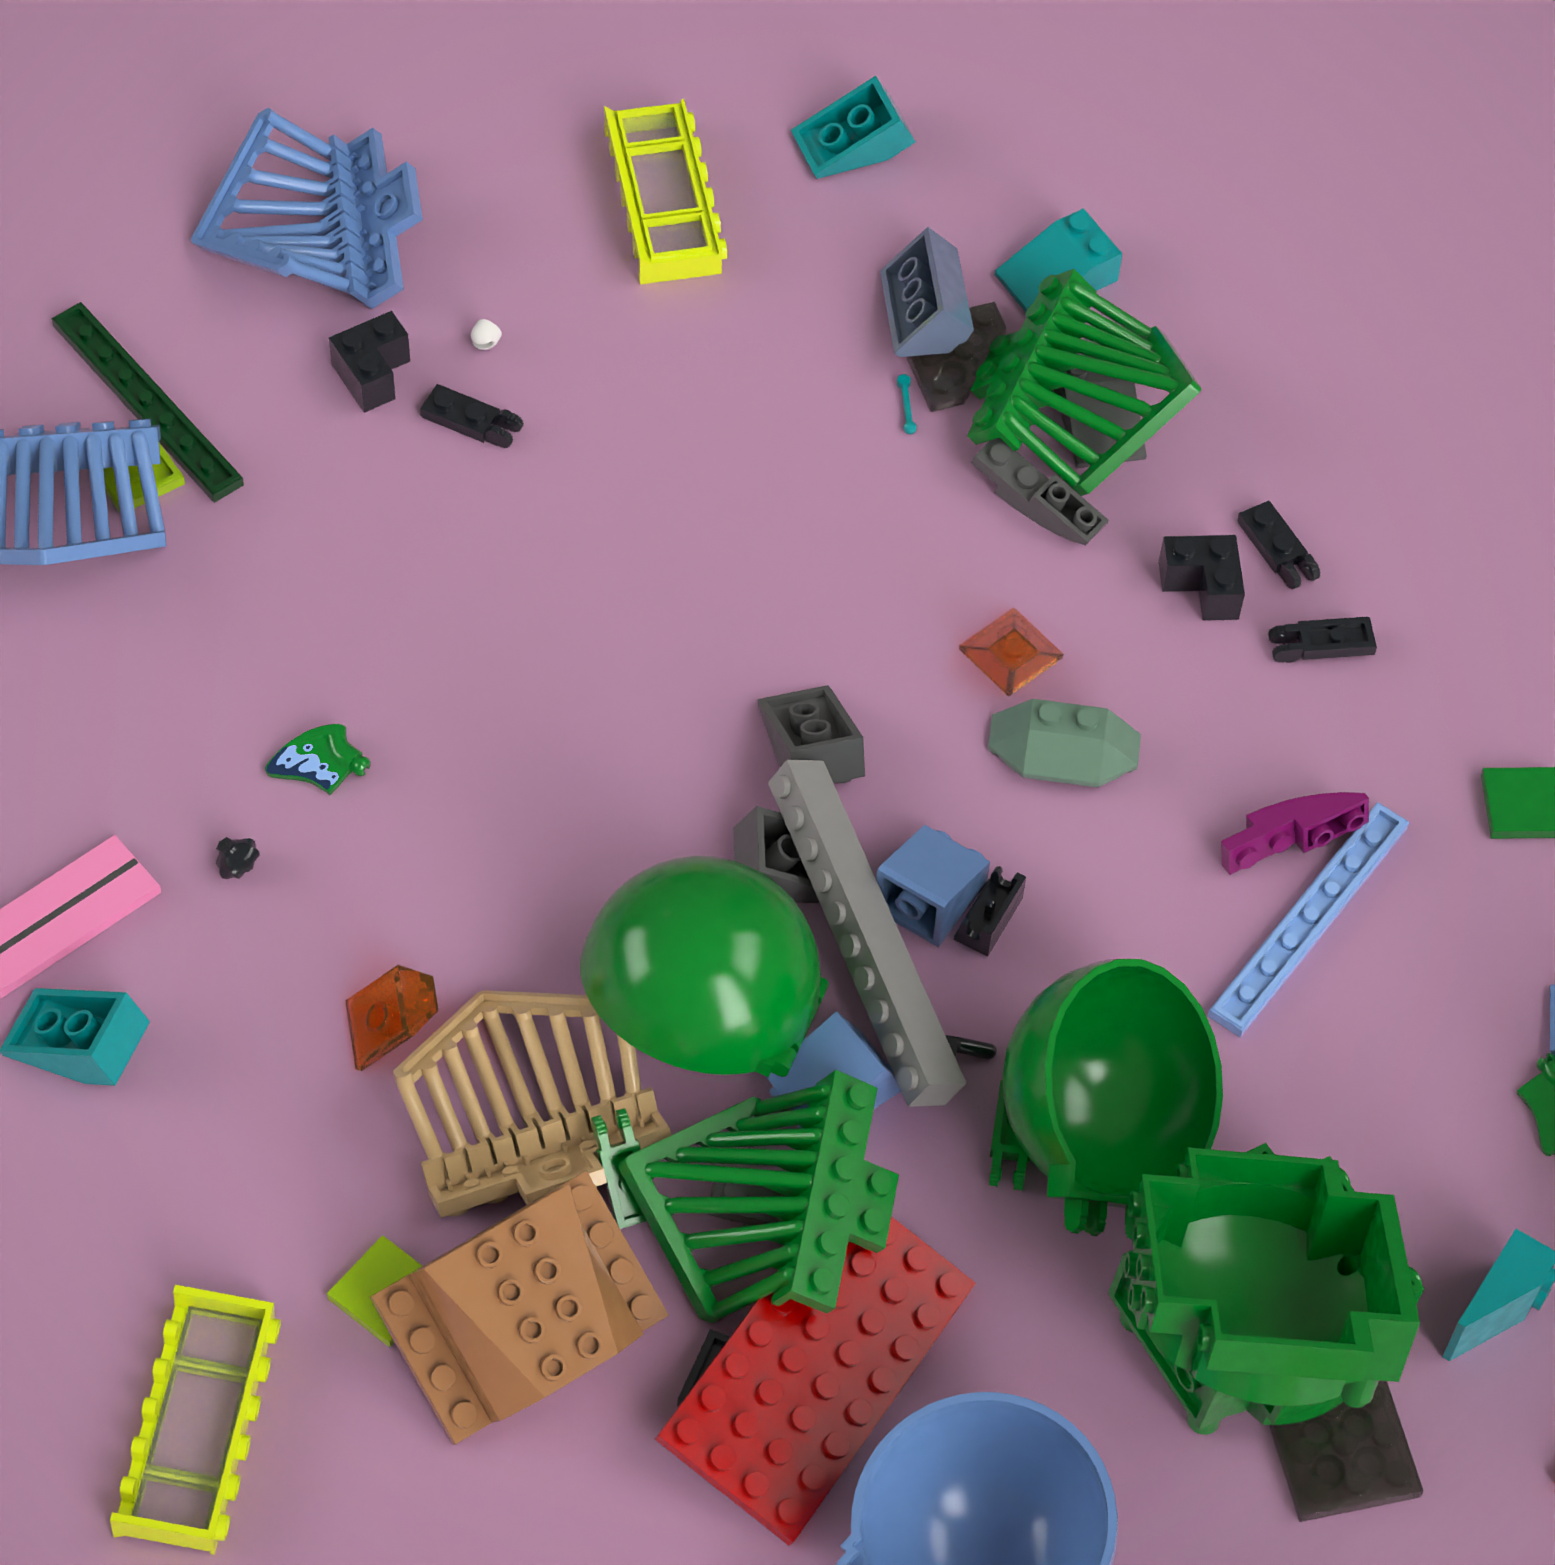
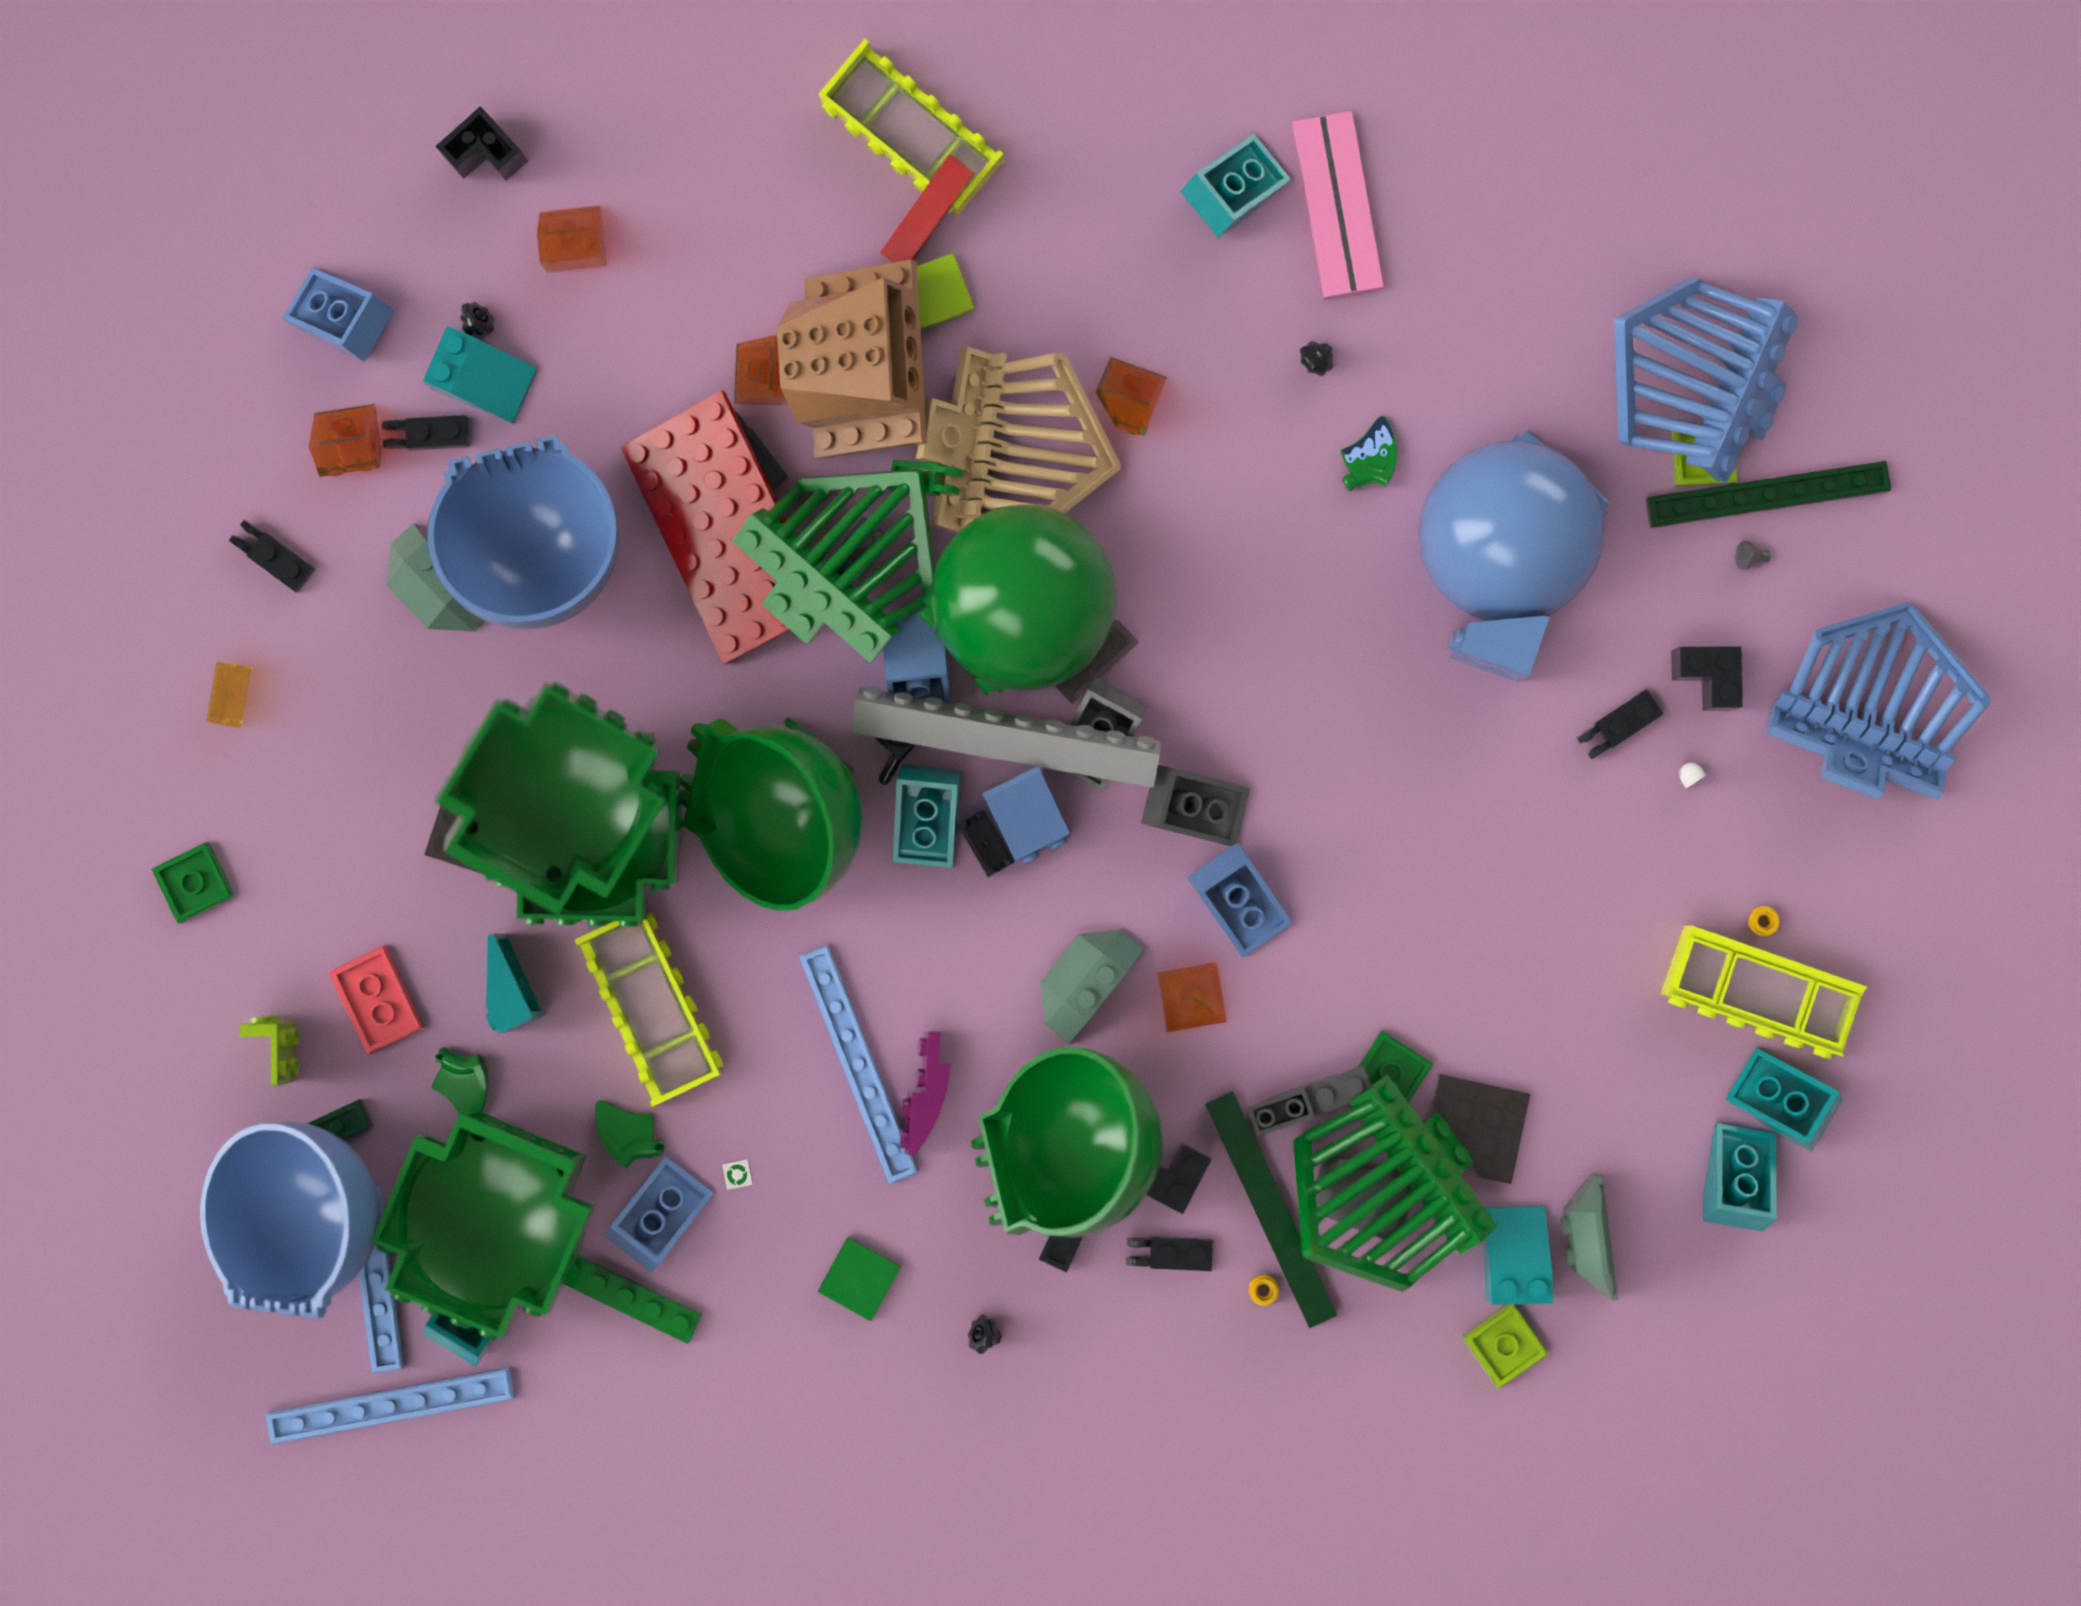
camera: 125 degrees right, 30 degrees up
(224, 386) = (1749, 555): none -> dark grey rock
(296, 1333) = (928, 210): none -> red tile
(323, 590) = (1512, 530): none -> medium blue windscreen
(454, 536) = (1500, 646): none -> medium blue slope
(592, 220) = (1772, 921): none -> yellow plate
(598, 1421) = (758, 373): none -> clear orange slope
(754, 129) = (1785, 1099): none -> teal slope
(879, 651) = (1240, 900): none -> medium blue slope
(904, 383) = (1476, 1069): teal hinge -> none
(926, 297) = (1534, 1125): sand blue slope -> none
(949, 450) = (1397, 1061): none -> green tile
(992, 980) = (926, 815): none -> teal slope
(996, 215) = (1589, 1236): none -> sand green wedge
(1151, 243) = (1505, 1345): none -> lime tile
(1168, 485) = (1270, 1209): none -> dark green tile
(1251, 636) = (1070, 1145): none -> green windscreen
(1255, 444) = (1270, 1297): none -> yellow plate
(1423, 1126) = (650, 1008): none -> clear window
(1488, 660) = (983, 1334): none -> black piece
(1513, 975) = (737, 1174): none -> white sticker

